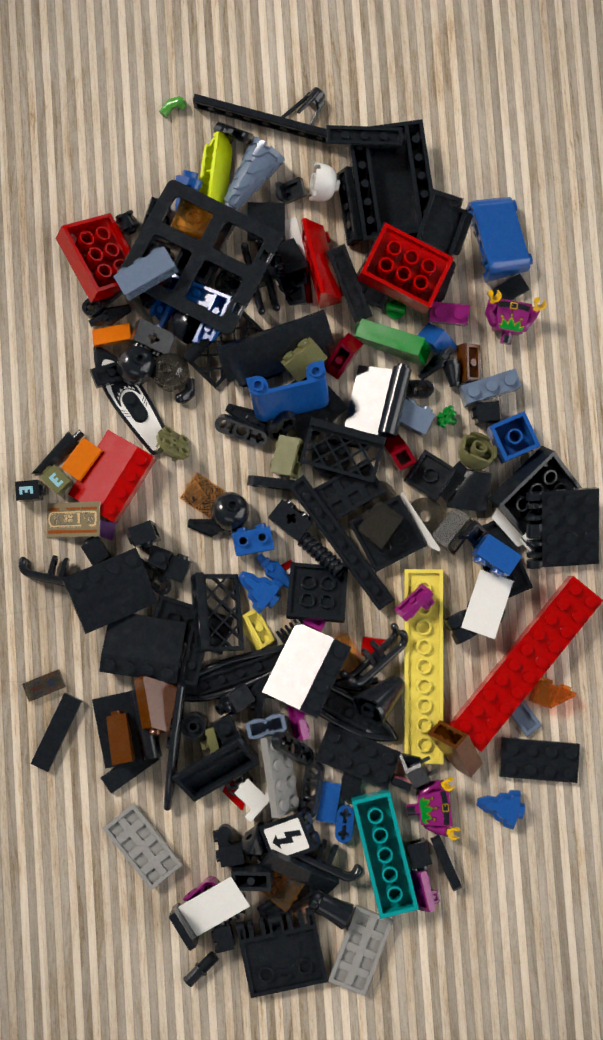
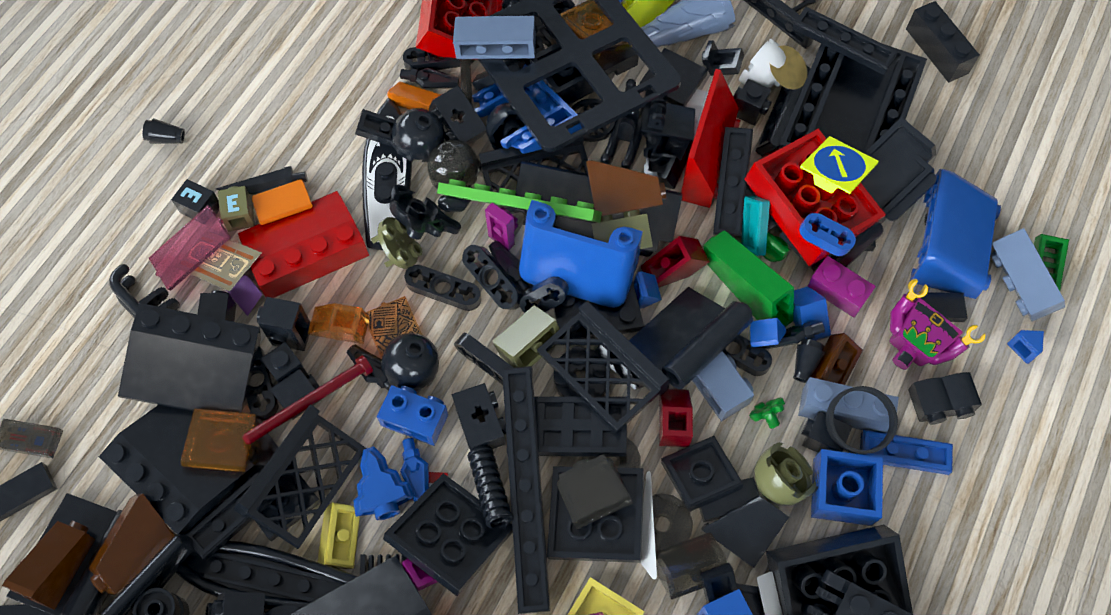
camera: 35 degrees right, 20 degrees down
(49, 522) = (189, 248): none -> clear pink piece
(158, 621) = (217, 440): none -> clear orange tile
(172, 514) = (339, 323): none -> clear orange slope
(173, 417) = (419, 215): none -> black tile
(200, 450) = (421, 287): none -> black beam
(205, 531) = (361, 367): none -> dark red bar
(226, 379) = (507, 198): none -> bright green plate
(228, 395) = (501, 225): none -> magenta hinge
(290, 332) = (623, 190): none -> reddish brown slope
(327, 212) = (752, 101): none -> black brick
(337, 382) = (646, 289): none -> blue slope
(343, 178) = (793, 72): none -> pearl gold sticker
(378, 304) = (755, 224): none -> teal tile
(411, 244) = (838, 166): none -> piece
(422, 92) = (942, 41): none -> black brick
(422, 371) = (766, 332): none -> blue slope
(428, 299) = (827, 234): none -> blue beam
(521, 400) = (893, 420): none -> black tyre
(533, 394) = (910, 452): none -> blue tile
(539, 349) = (945, 397): none -> black brick
(550, 241) = (1027, 275): none -> sand blue brick
(566, 220) = (1061, 247): none -> green slope
(571, 287) = (1027, 344): none -> blue slope

